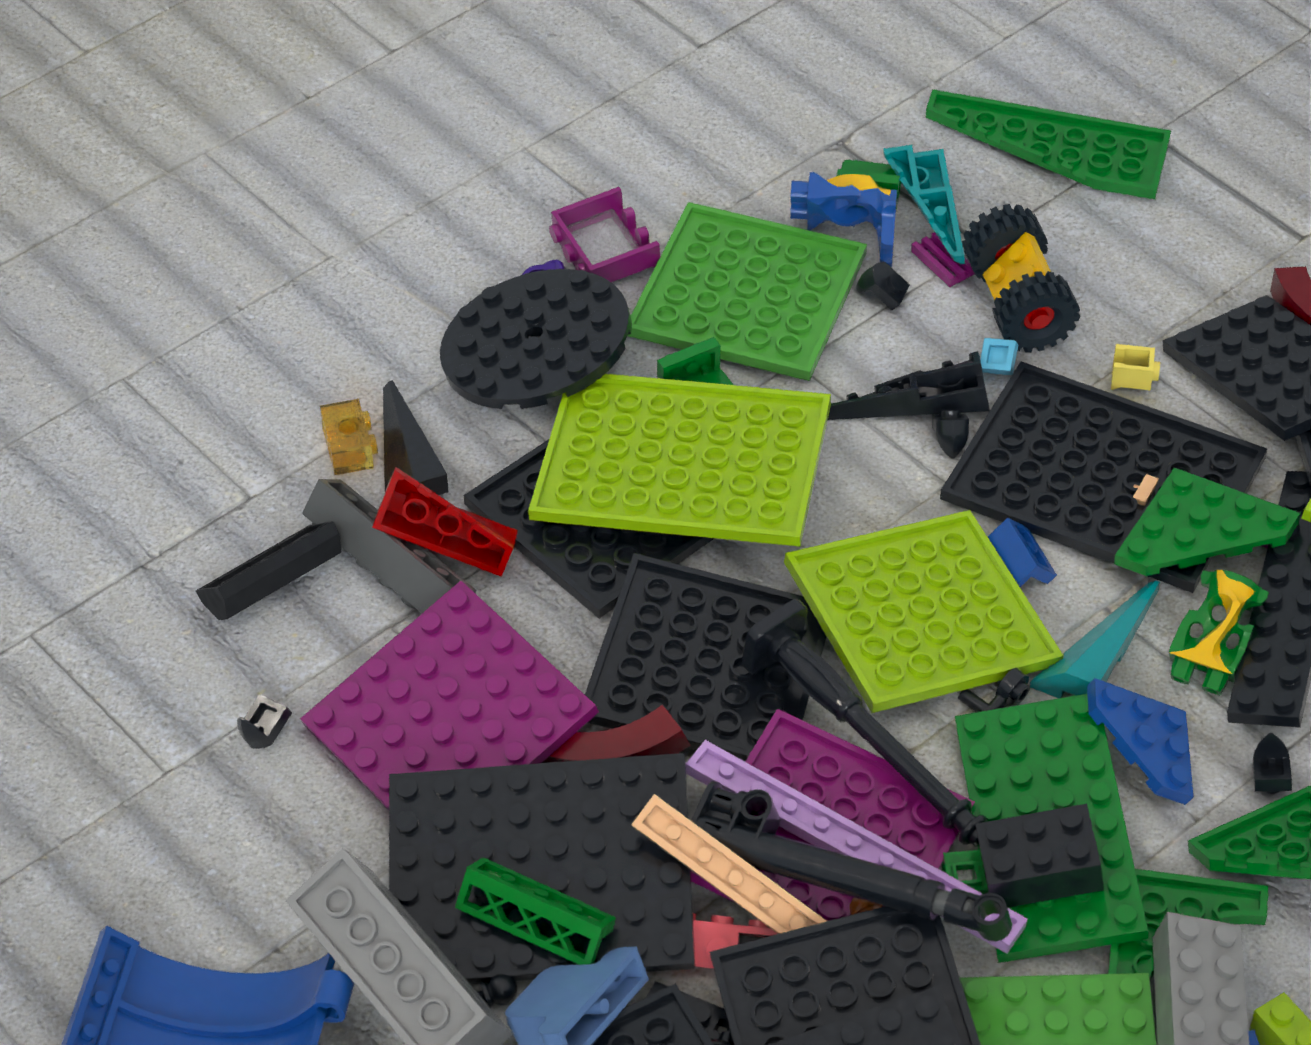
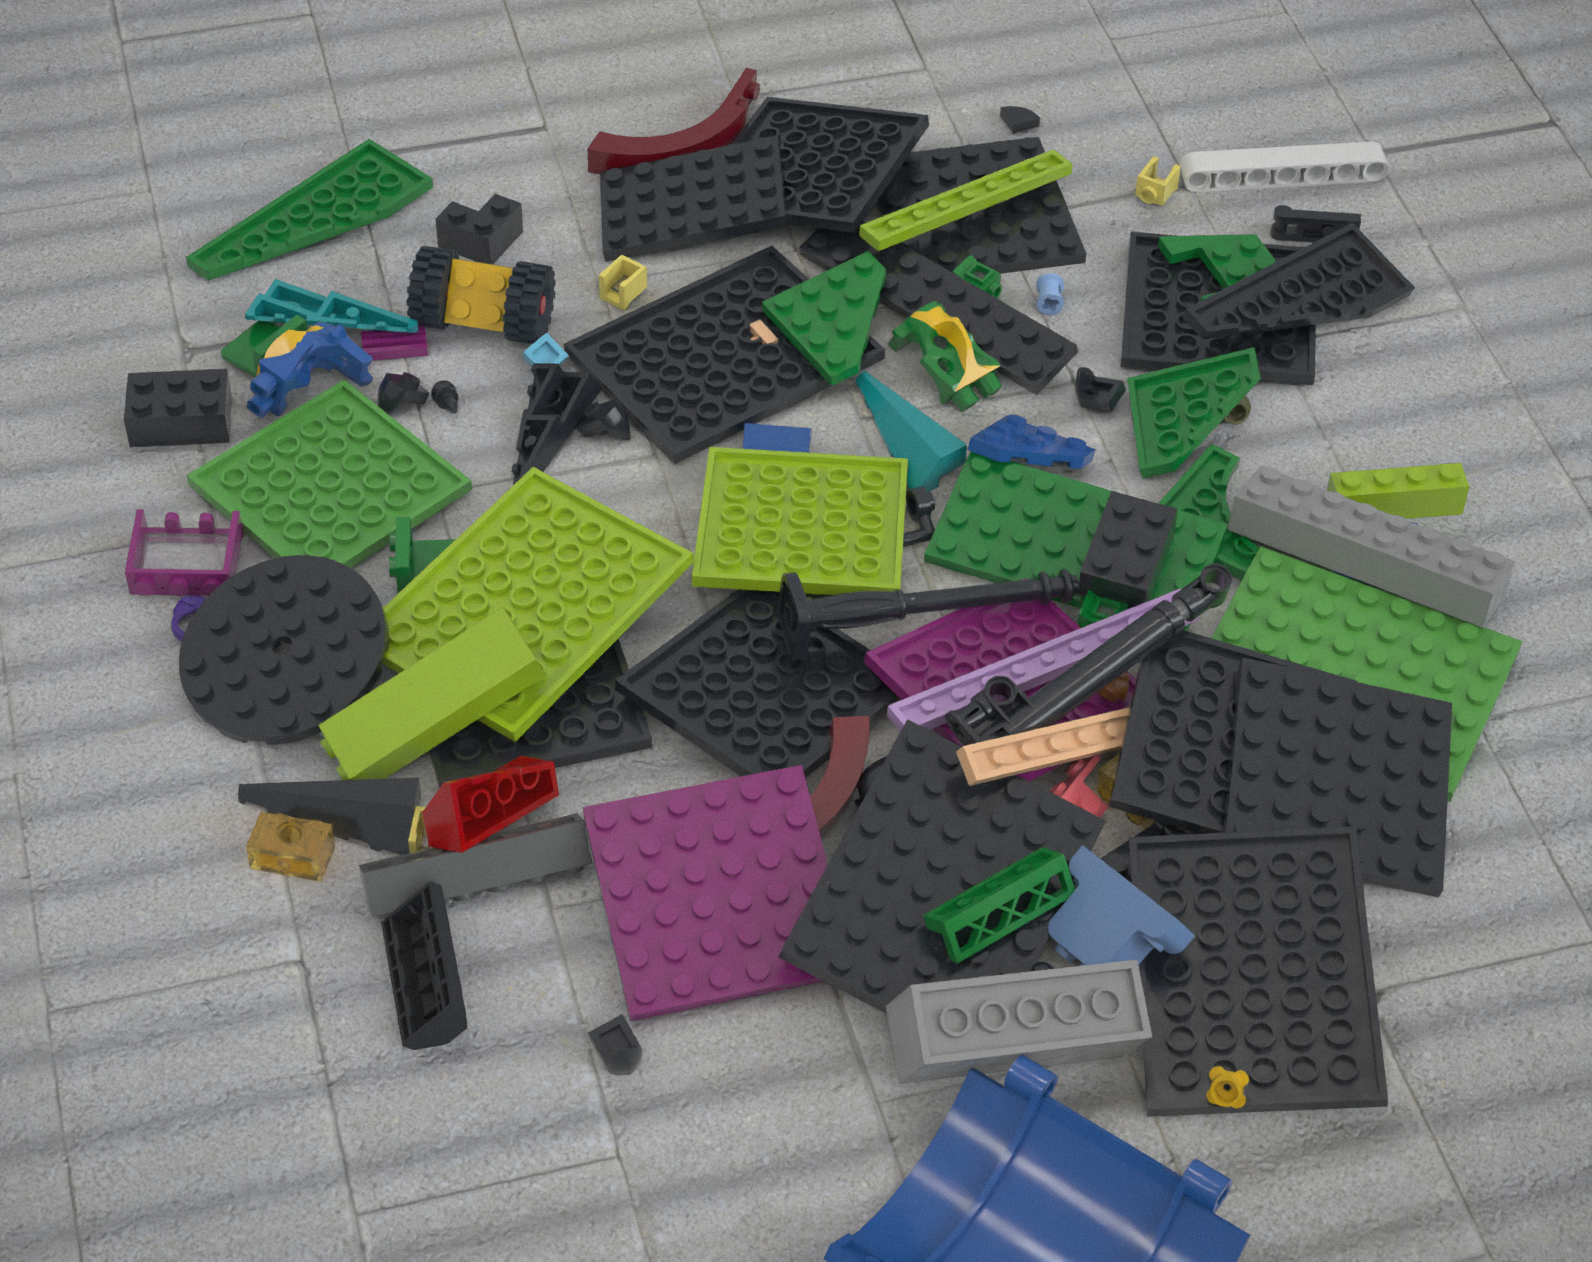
camera: 65 degrees left, 0 degrees up
(526, 443) = (431, 700): none -> lime brick
(756, 162) = (178, 407): none -> black brick
(904, 317) = (445, 395): none -> black bar
(1120, 253) = (481, 233): none -> black brick

